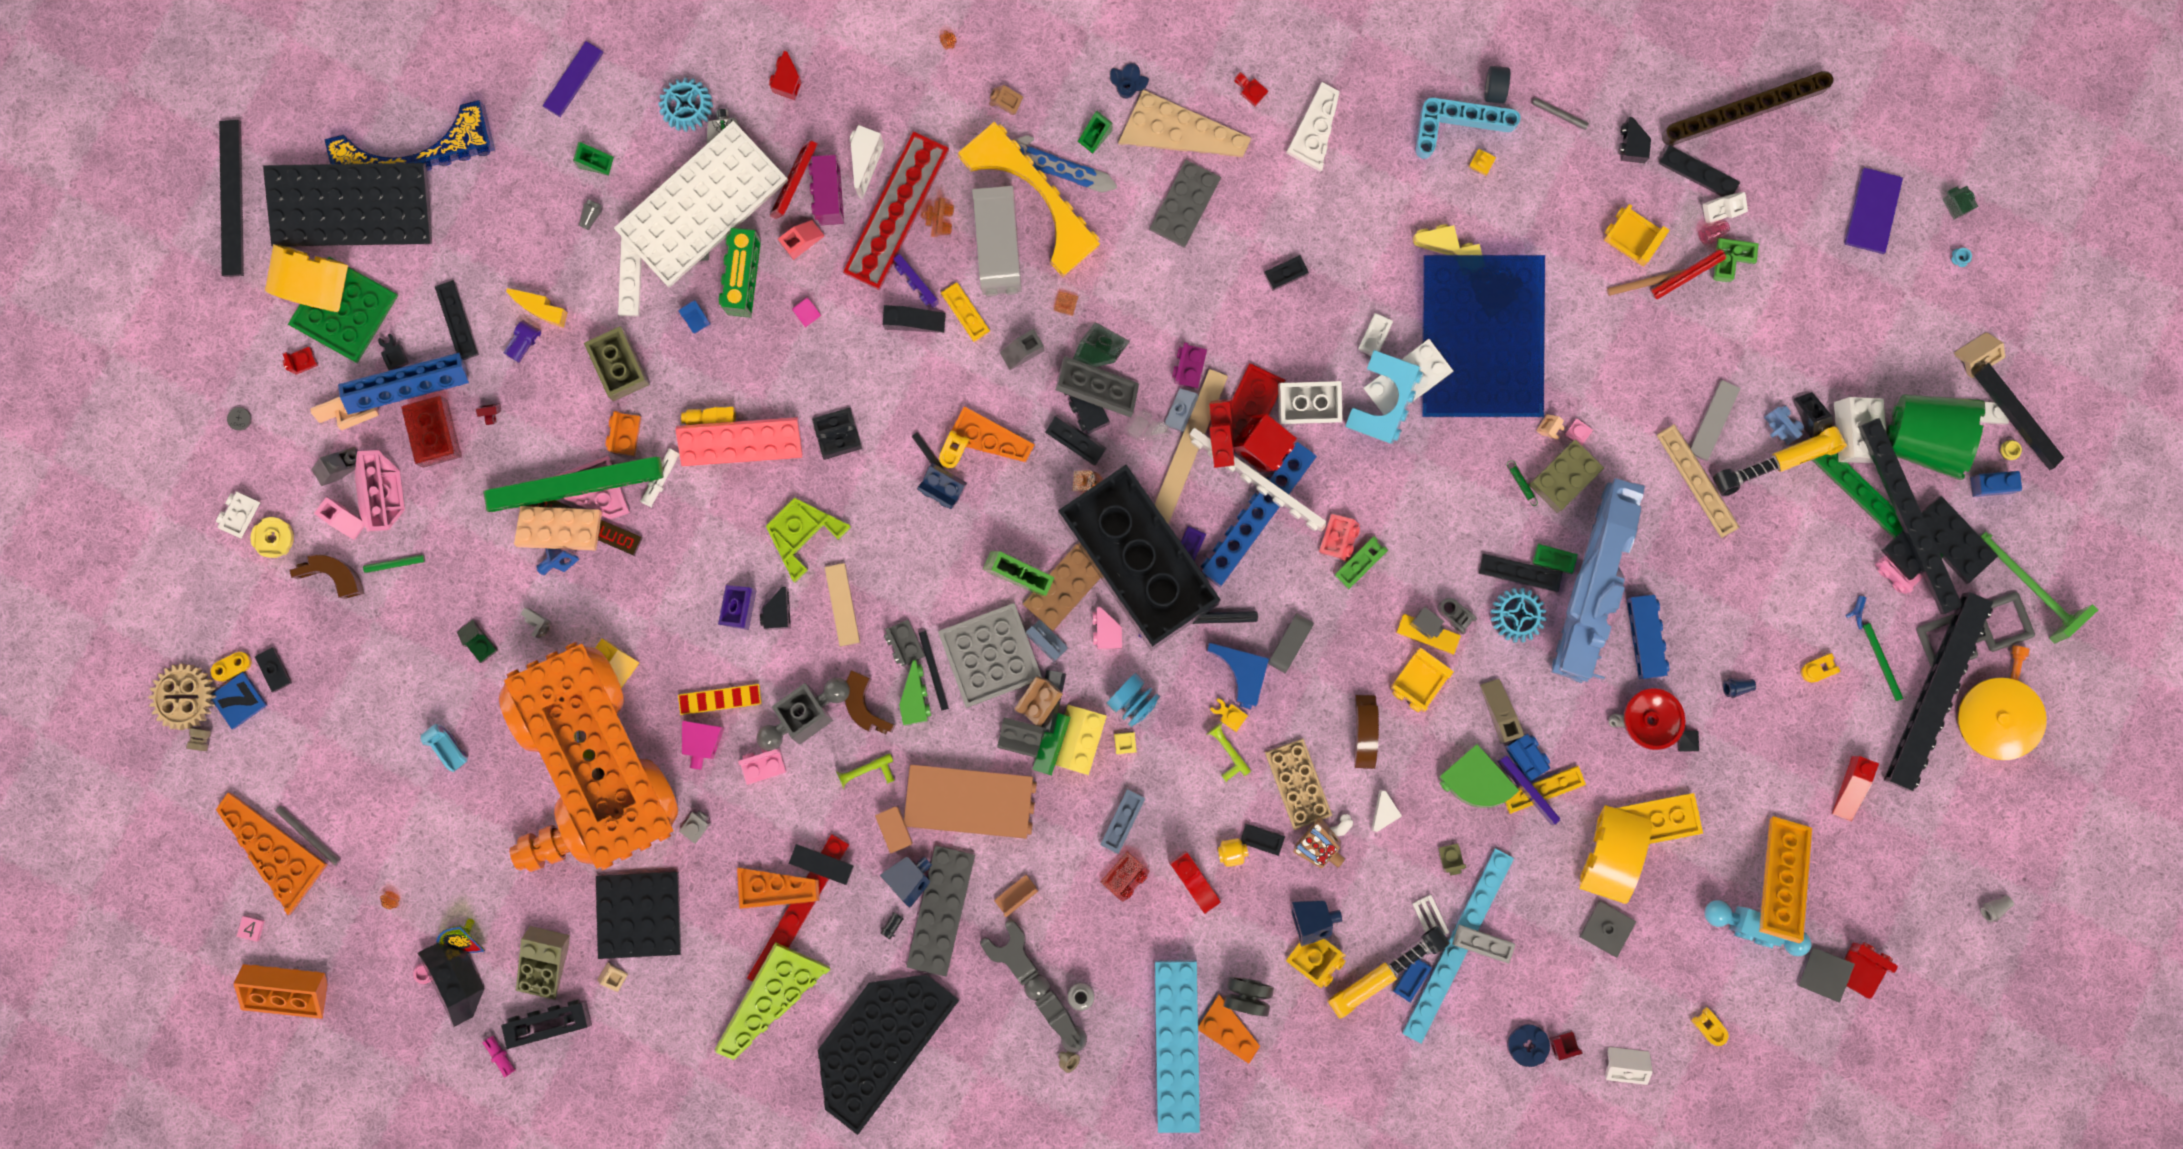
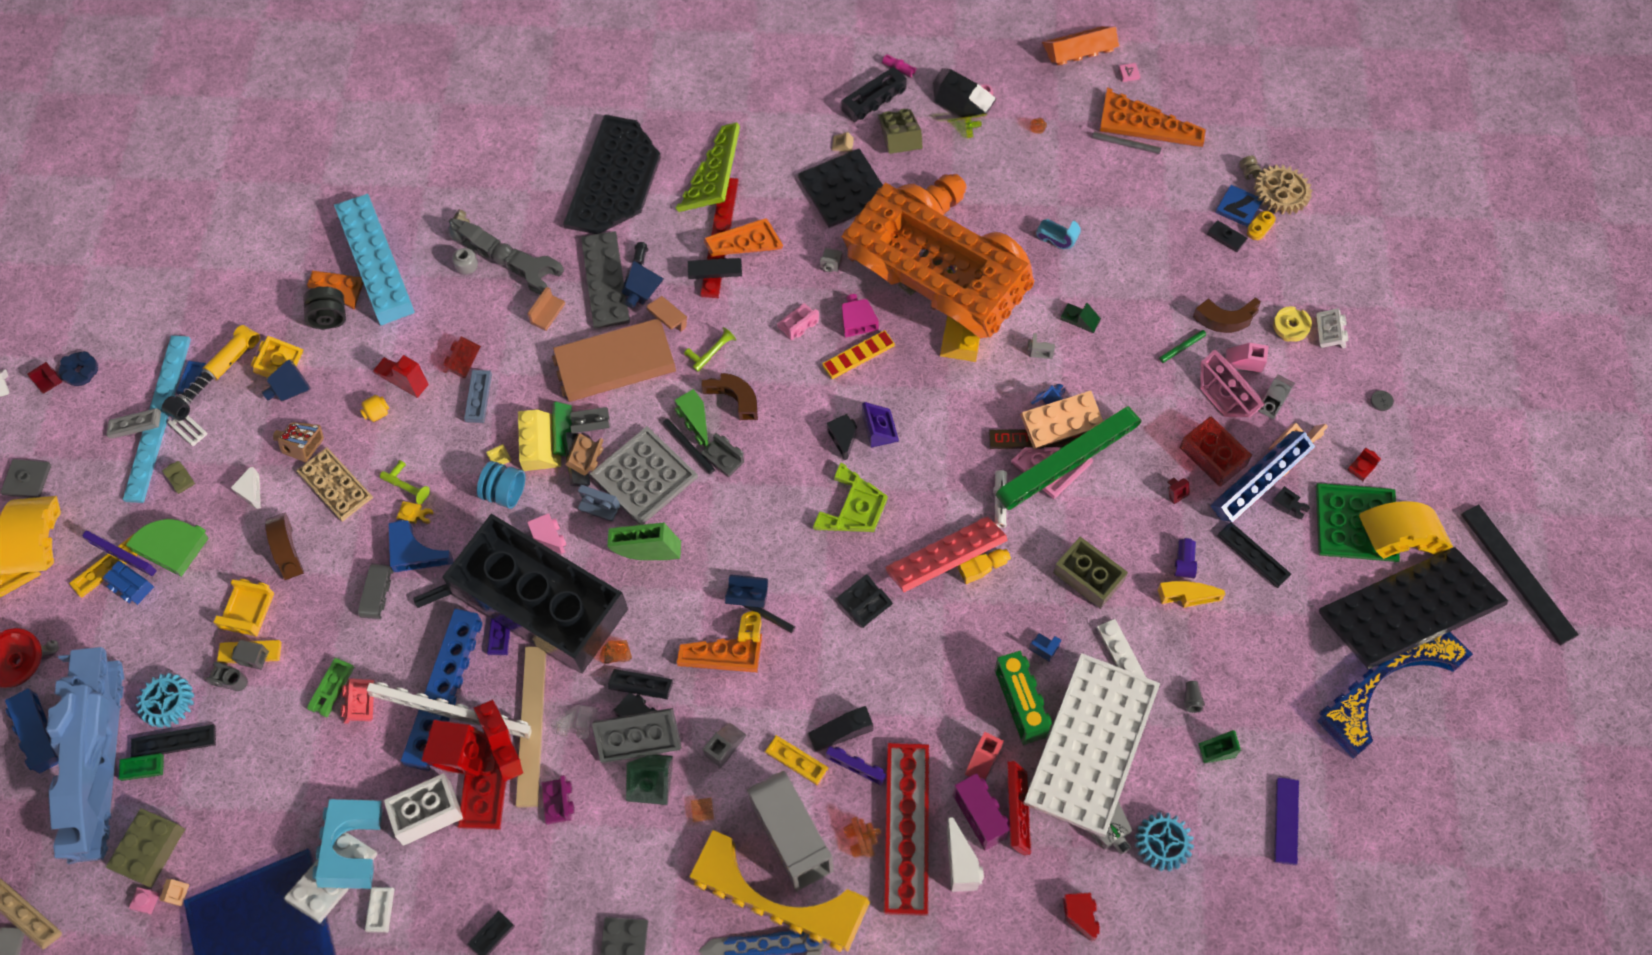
camera: 155 degrees right, 20 degrees down
(623, 433) = (1052, 521): orange bracket -> none
(804, 725) = (781, 364): dark grey brick -> none
(806, 312) = (945, 694): dark pink slope -> none
(842, 605) = (791, 465): tan tile -> none
(1071, 583) = (596, 556): medium nougat plate -> none
(1181, 409) = (550, 754): sand blue plate -> none
(1262, 839) = (352, 430): black tile -> none
(1344, 826) = (282, 469): white arm -> none
(1501, 711) = (160, 609): dark tan slope -> none
(1524, 486) = (190, 826): green piece -> none

